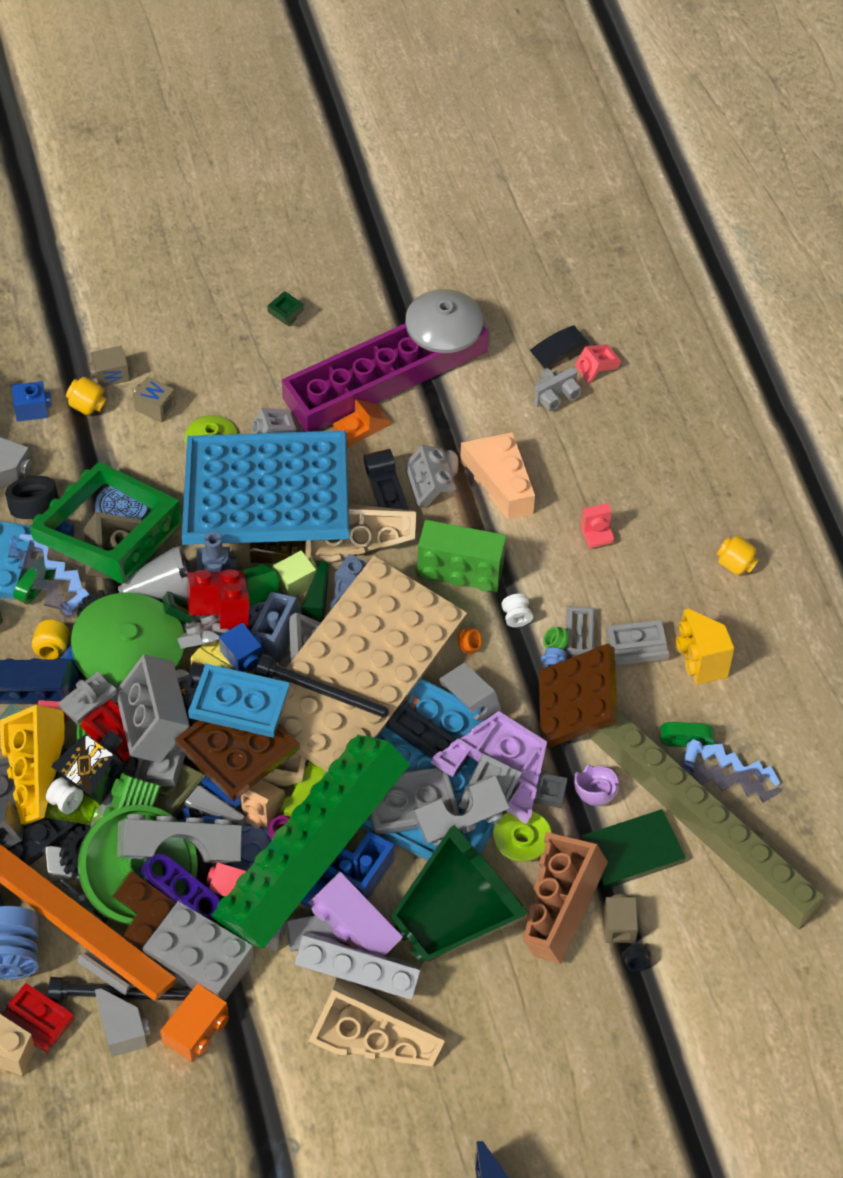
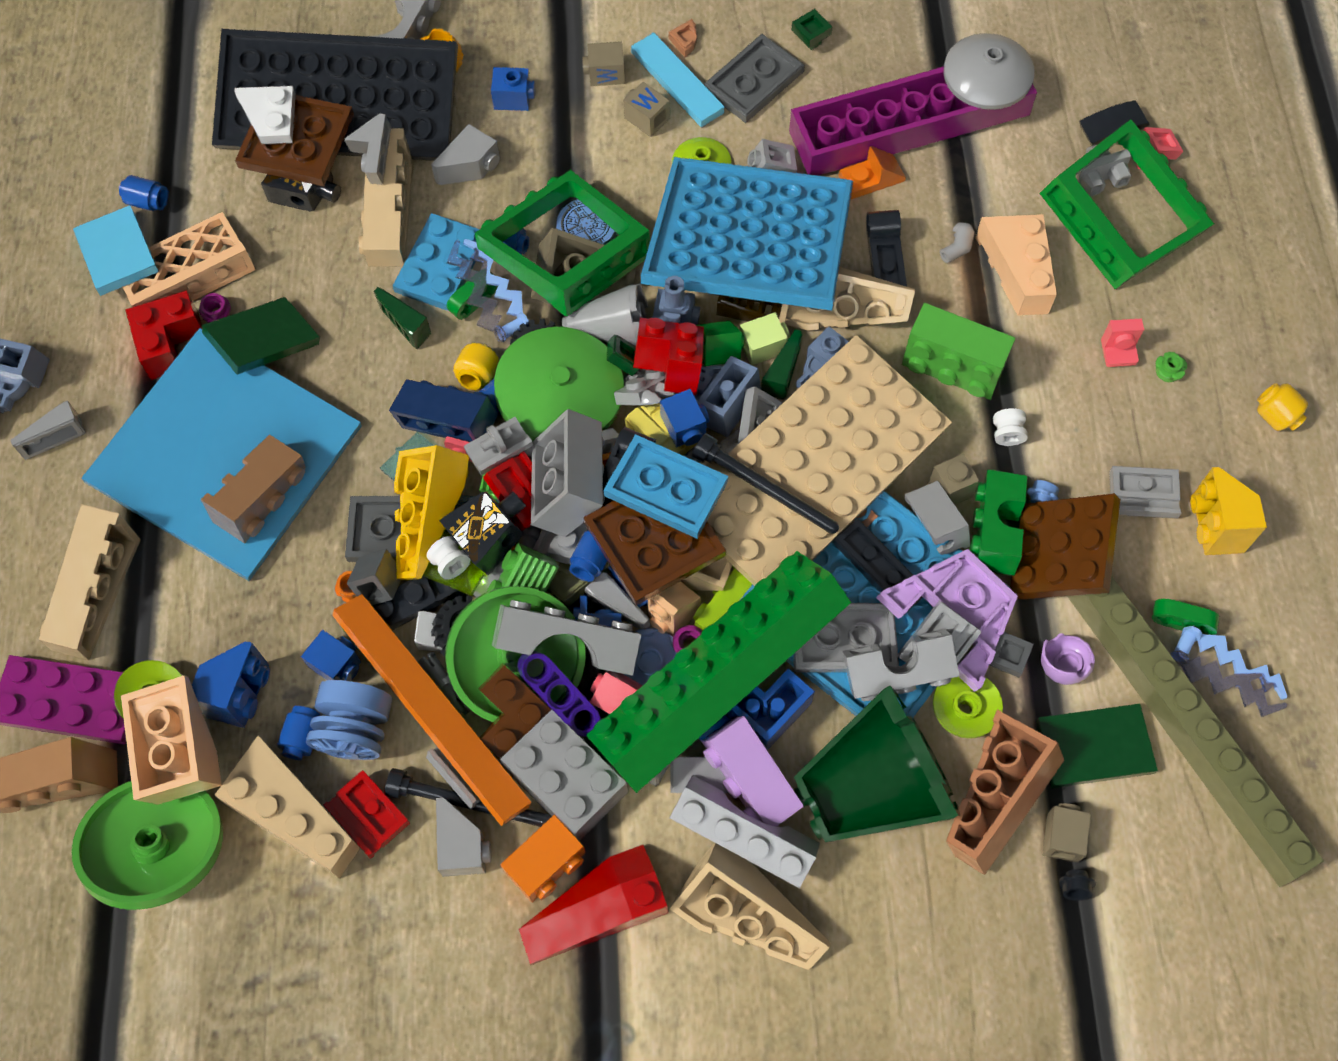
camera: 15 degrees right, 10 degrees up
(30, 496) = (488, 196): black tyre -> none
(86, 396) = (572, 93): yellow head -> none
(174, 333) = (684, 37): none -> nougat tile
(175, 370) = (677, 79): none -> medium azure tile
(183, 775) = (587, 559): none -> blue brick
(242, 358) = (754, 77): none -> dark grey tile
(254, 1047) = (604, 902): none -> red wedge
(429, 474) = (938, 247): light grey bracket -> none
(469, 640) = (946, 450): orange plate -> none
(480, 658) = (956, 478): none -> dark tan brick
(521, 669) = (1000, 498): none -> green arch
(556, 437) = (1093, 228): none -> green windscreen
(556, 637) = (1050, 469): bright green plate -> none
(579, 611) = (1073, 489): light grey tile -> none
(639, 544) = (1167, 372): none -> bright green plate

